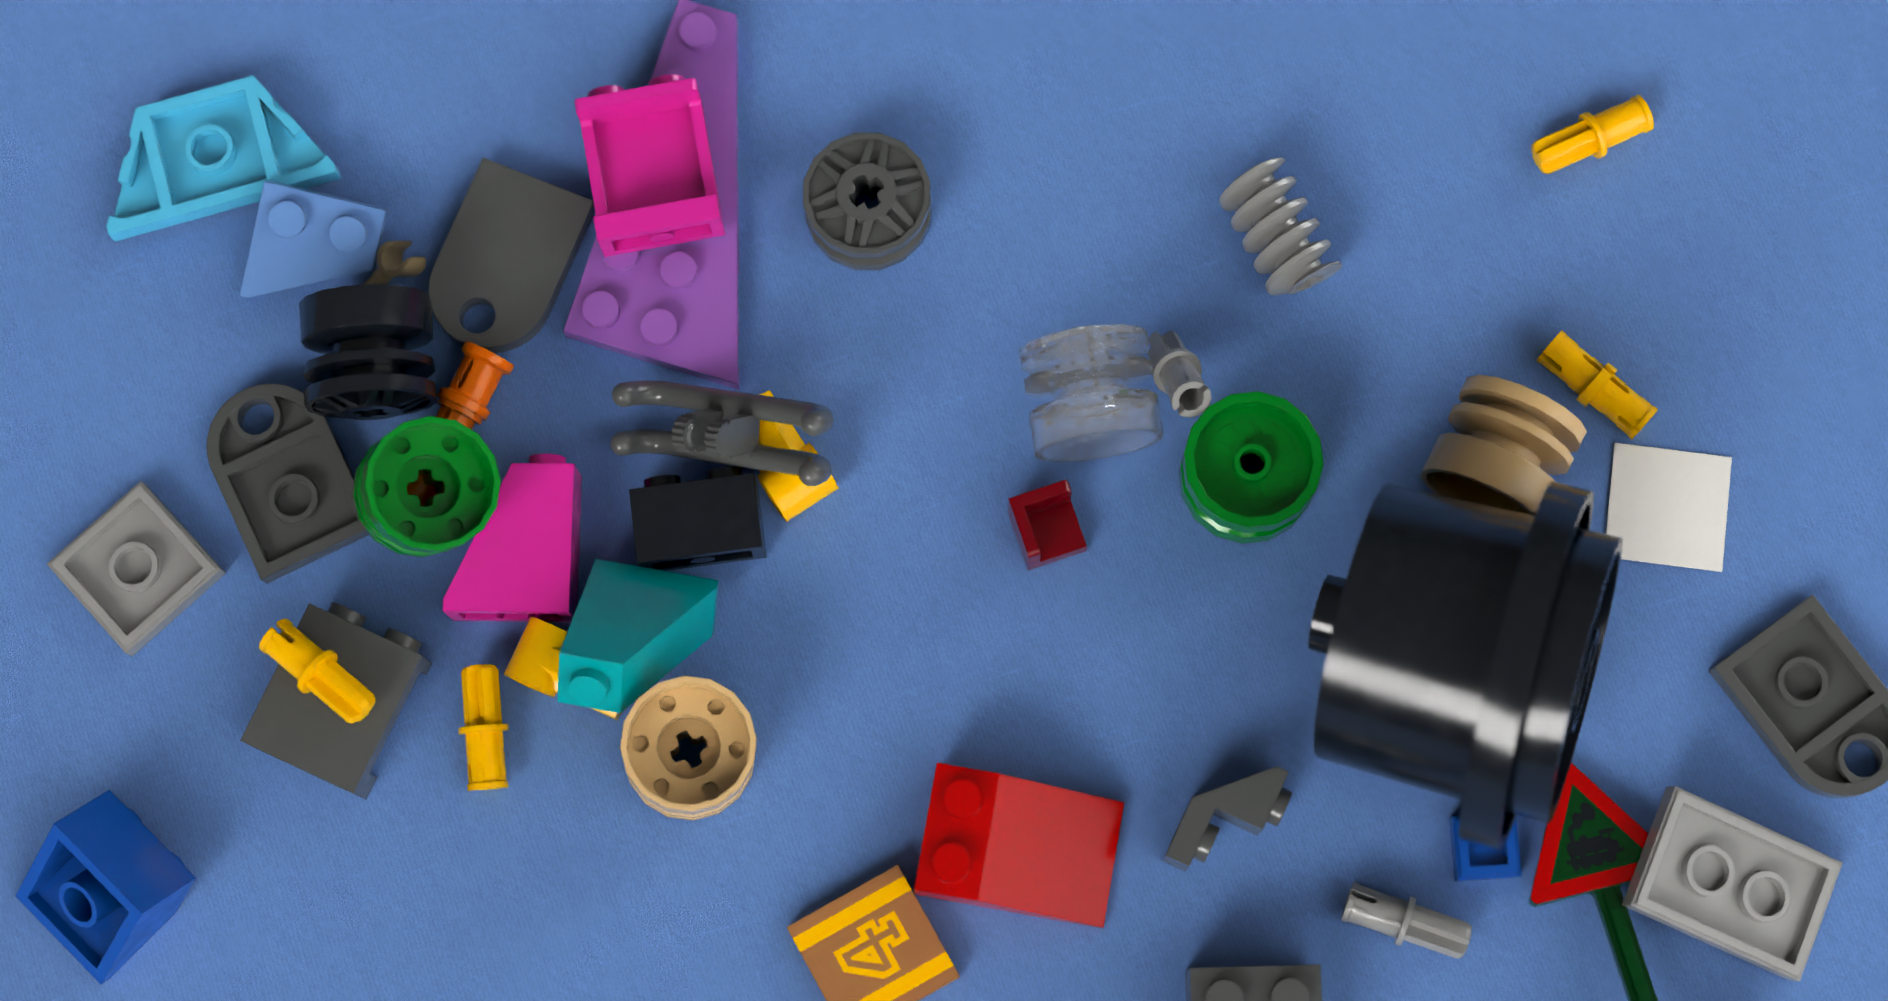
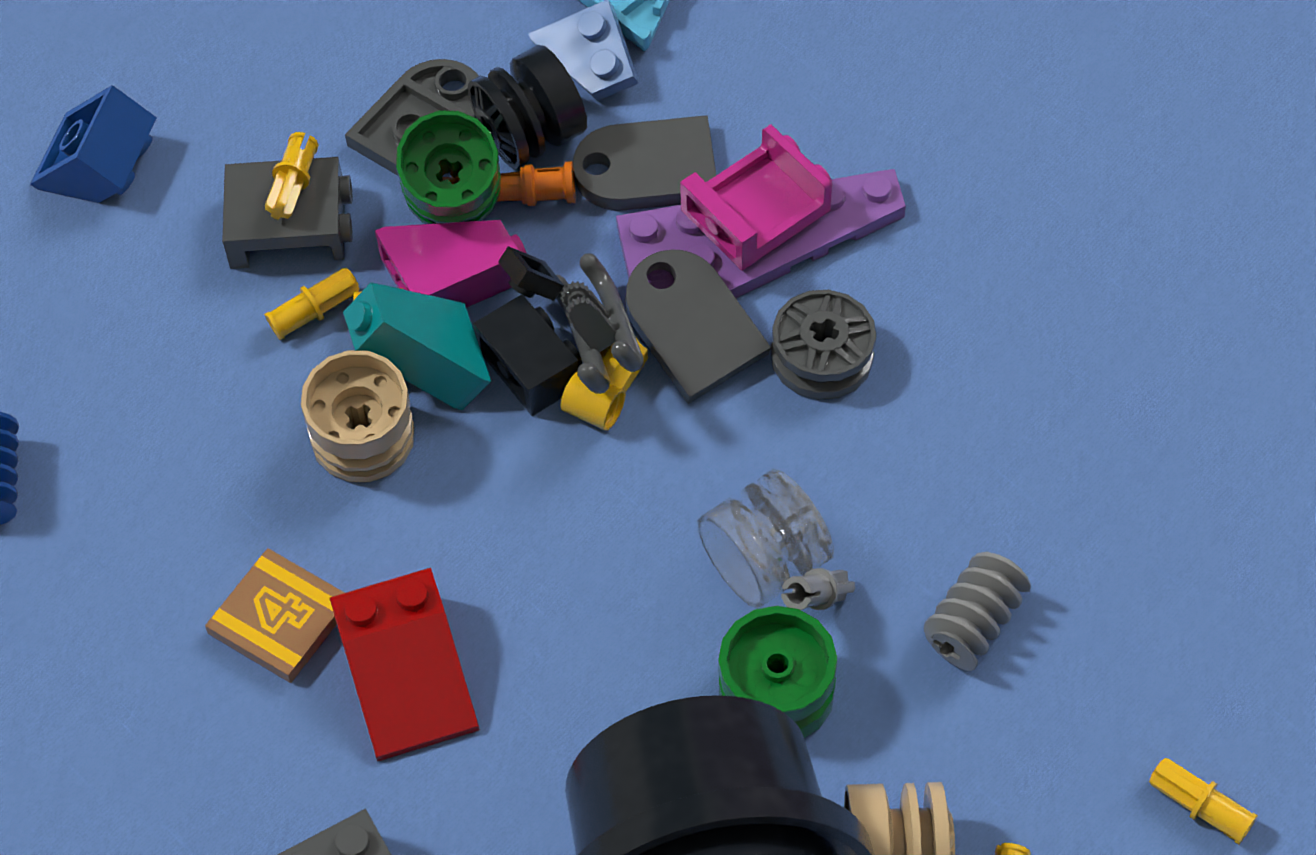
camera: 60 degrees right, 20 degrees down
(136, 568) = (315, 71): light grey tile -> none
(391, 264) = (605, 104): dark tan hand -> none
(607, 466) = (530, 274): none -> black plate
(763, 323) = (694, 324): none -> dark grey tile
(1046, 524) = (654, 566): dark red panel -> none
(1242, 803) = (525, 805): dark grey slope -> none

